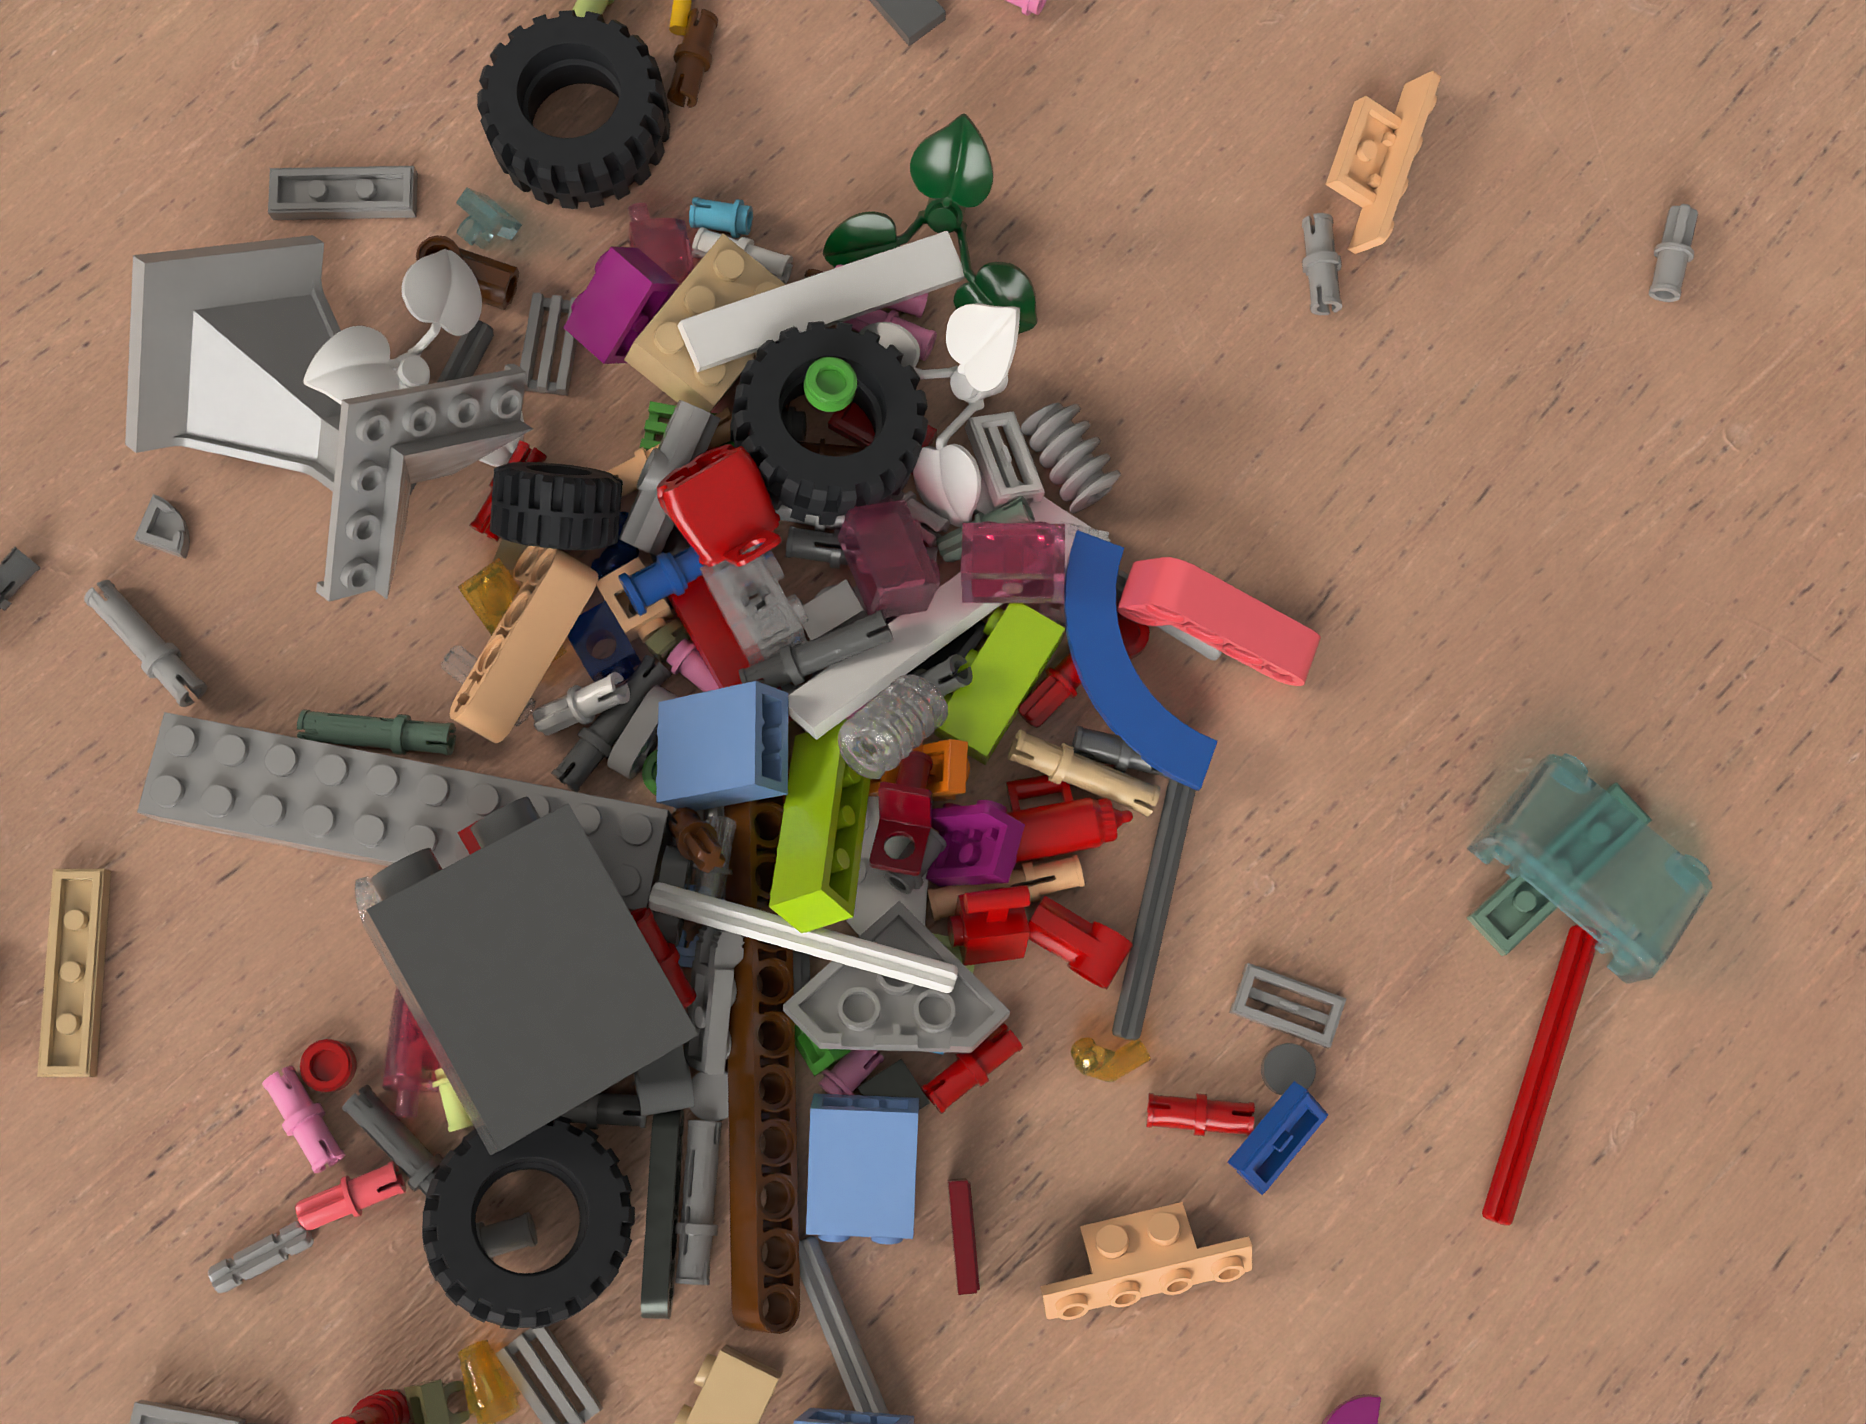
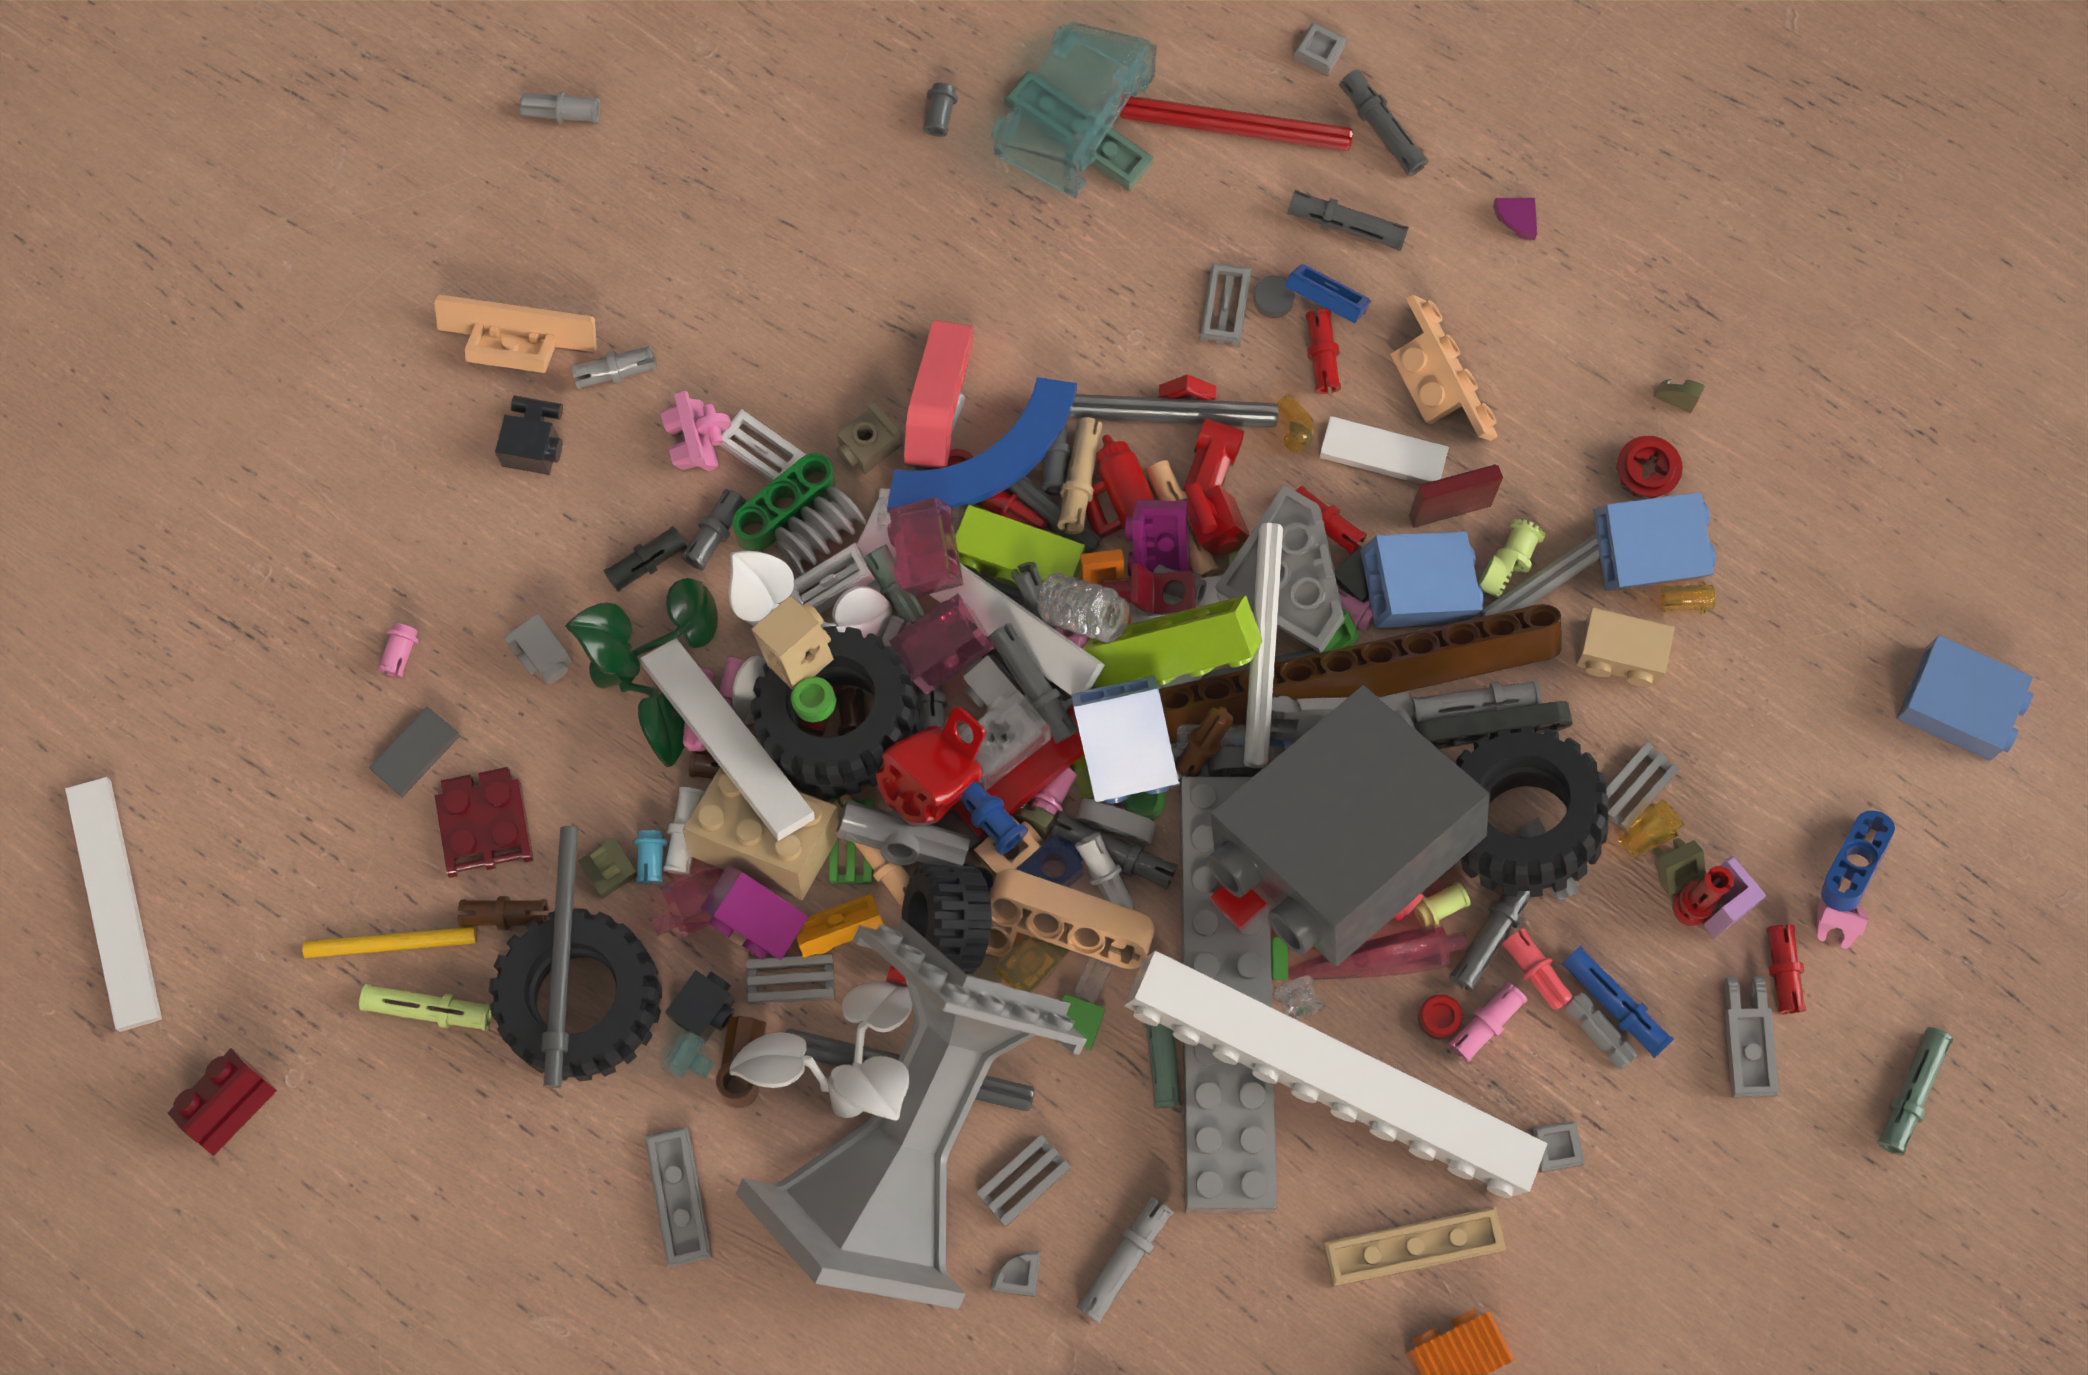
camera: 100 degrees left, 5 degrees down
(141, 1169) = (1562, 1146): none -> light grey tile
(233, 1318) = (1617, 1002): none -> blue pin
(244, 518) = (1050, 1155): none -> light grey tile
(259, 909) = (1335, 1075): none -> white brick
(424, 645) = (1086, 1018): none -> bright green tile
(509, 62) = (555, 1040): none -> dark grey bar
(537, 242) = (702, 1005): none -> black brick
(593, 401) = (837, 925): none -> light orange plate
(722, 173) = (608, 868): none -> olive tile
(805, 54) = (482, 820): none -> dark red plate
(881, 1301) = (1513, 557): none -> yellowish green connector
(893, 361) = (793, 641): none -> tan brick
(998, 127) = (539, 650): none -> light grey brick
(1051, 729) = (1050, 510): none -> dark grey axle
(1051, 1164) = (1383, 451): none -> white tile
(1075, 262) = (645, 559): none -> pearl dark grey pin
(1097, 343) = (713, 529): none -> dark grey pin
(1114, 401) = (789, 484): none -> green beam
(1162, 443) = (766, 433): none -> white tile
(1176, 931) = (1187, 387): none -> red tile
(1191, 546) = (868, 453): none -> dark tan brick
(1222, 341) = (701, 432): none -> bright pink hips
(1243, 155) = (529, 441): none -> black brick
(1375, 1195) = (1347, 220): none -> dark grey pin
(1522, 1266) = (1375, 112): none -> dark grey pin
(1611, 698) = (941, 100): none -> dark grey pin
(1636, 1211) = (1320, 49): none -> light grey tile

